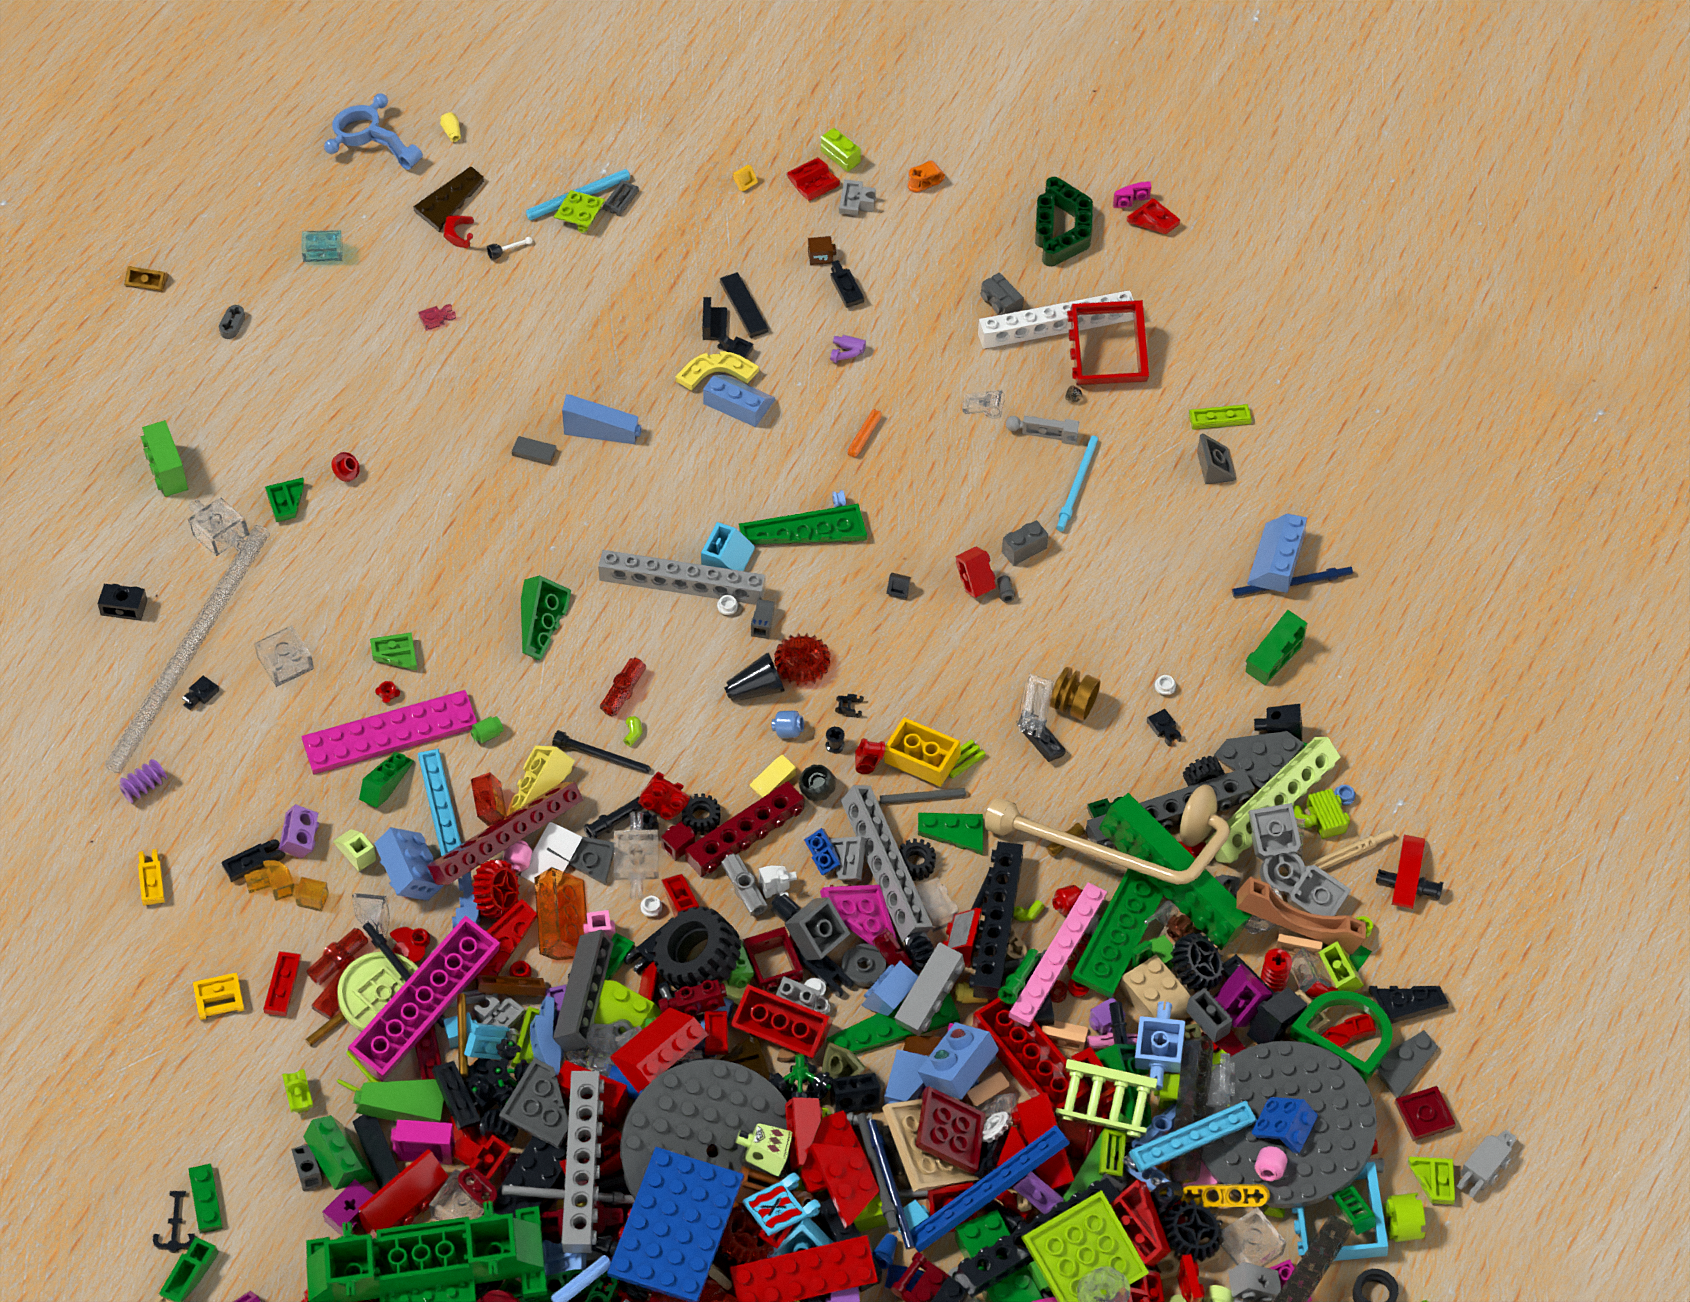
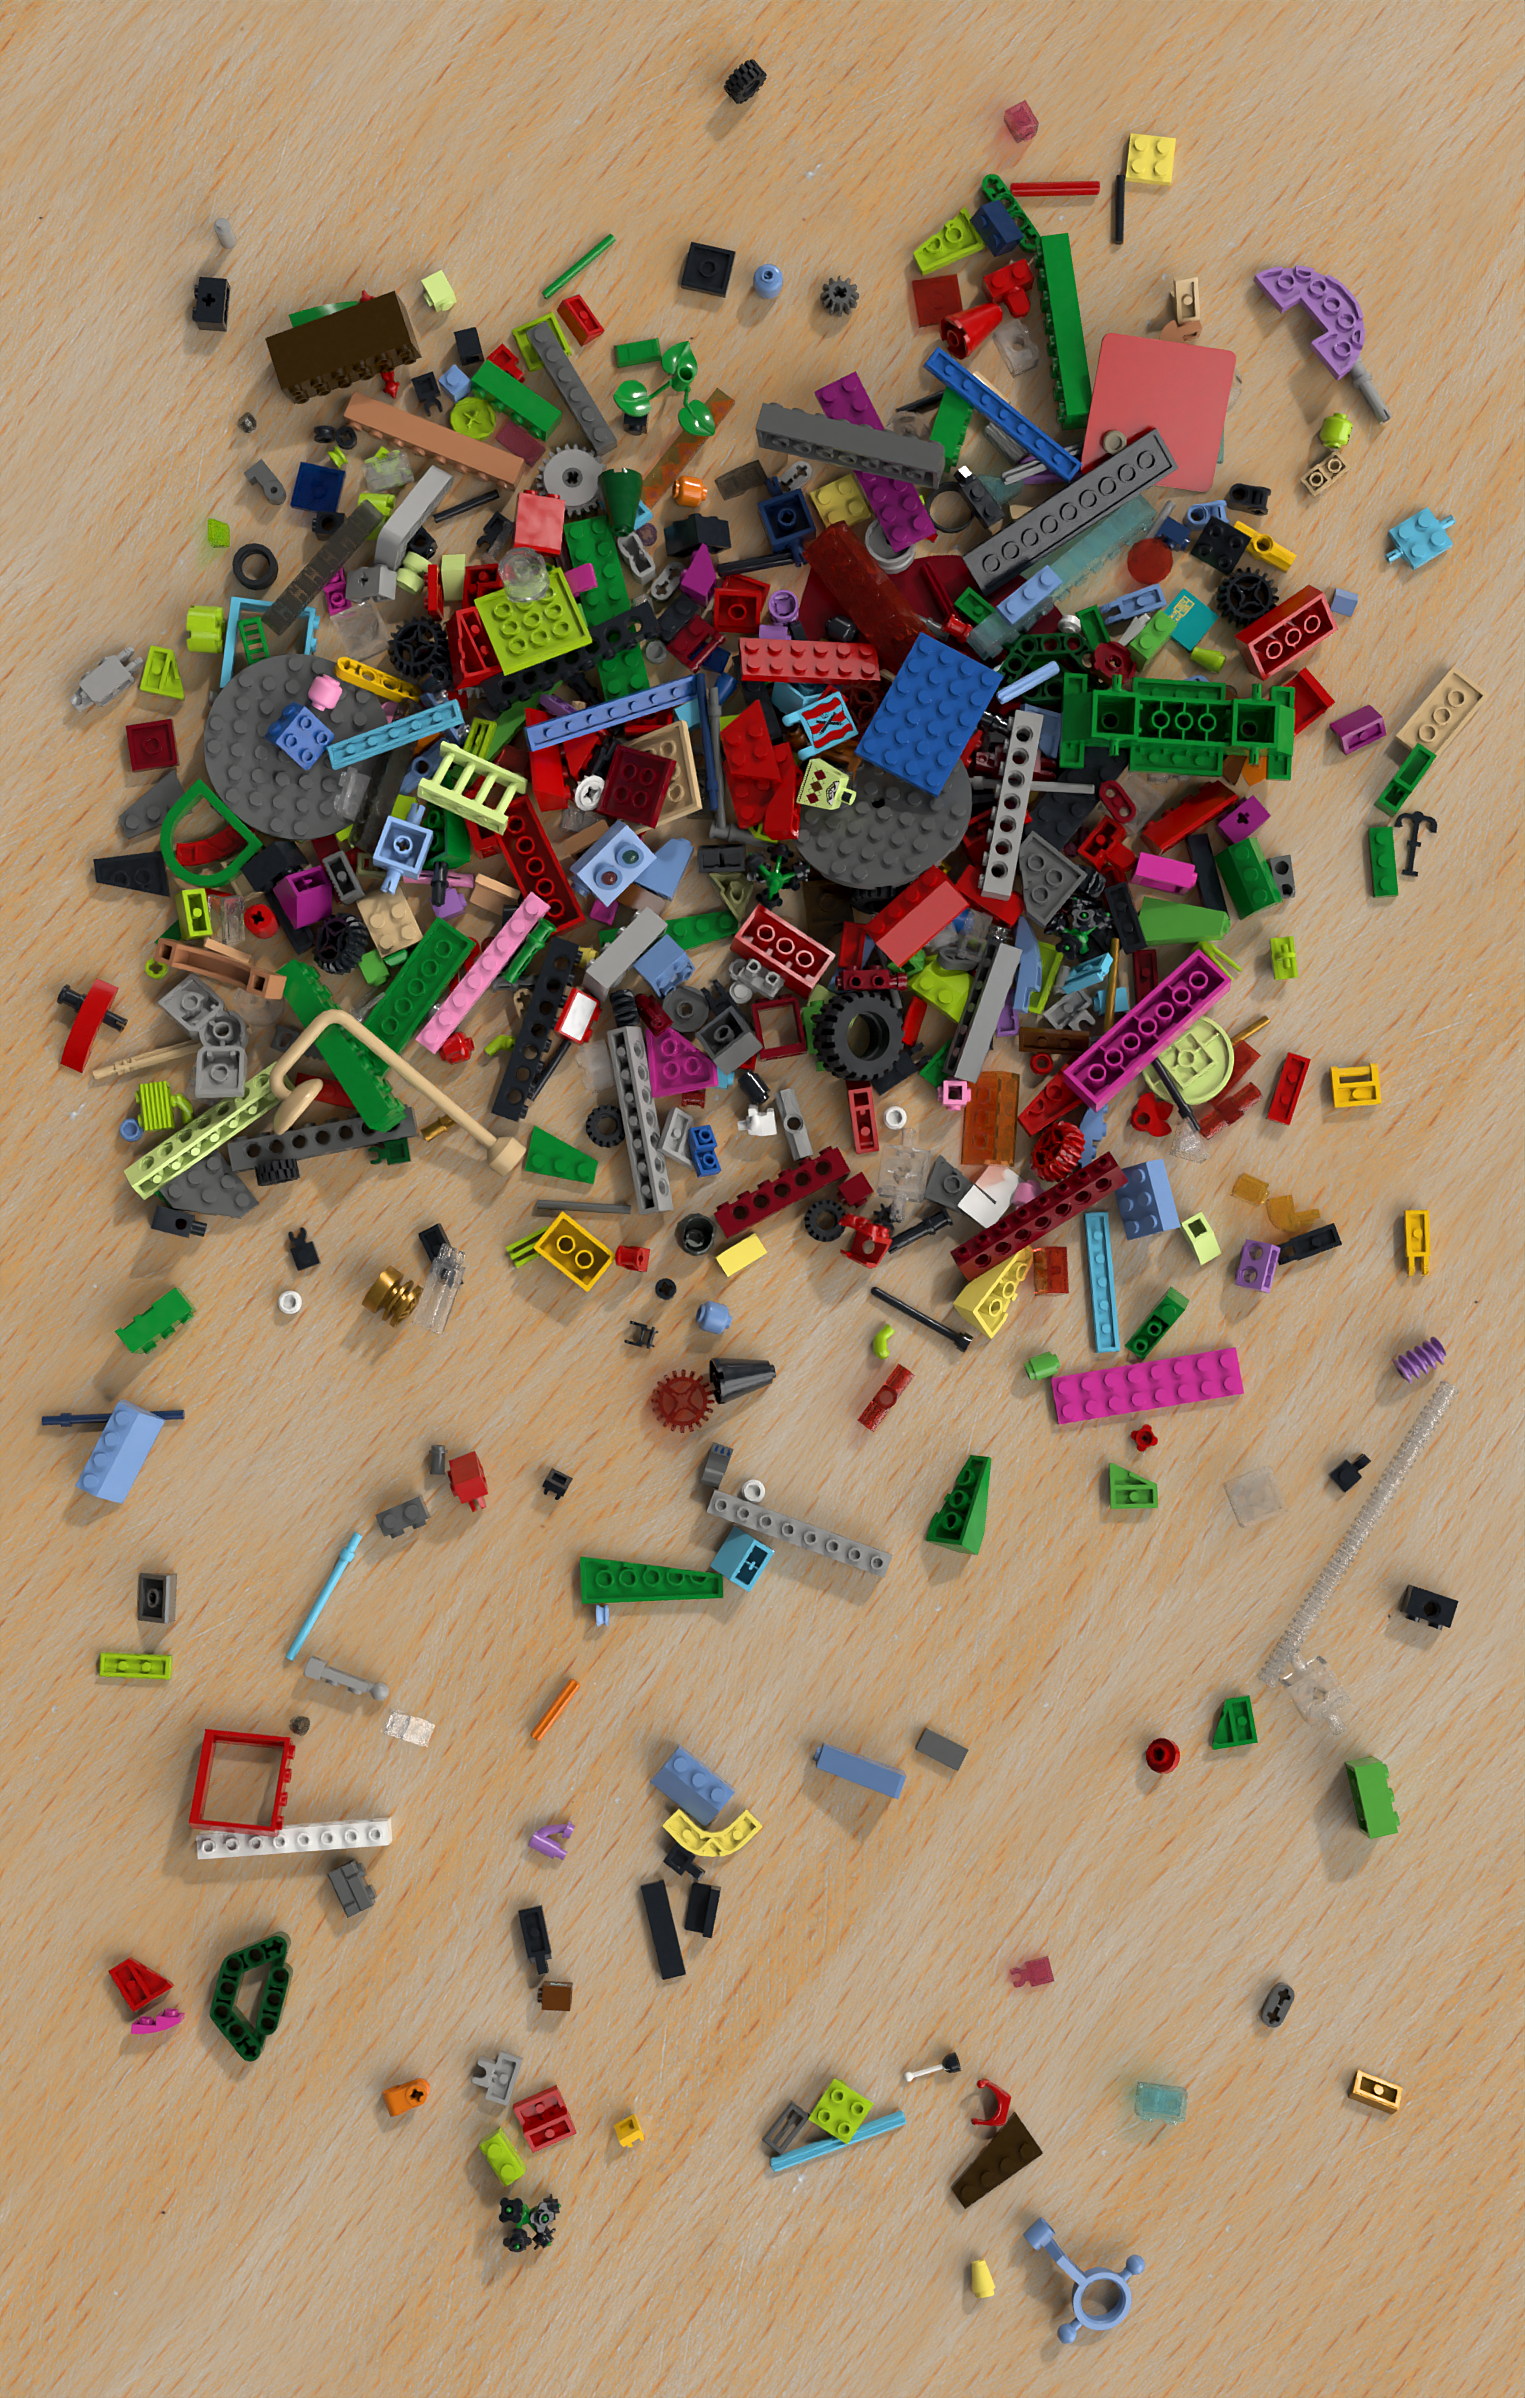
camera: 170 degrees left, 30 degrees up
(820, 106) = (536, 2217): none -> black plant
(1179, 926) = (348, 994): copper gear -> none

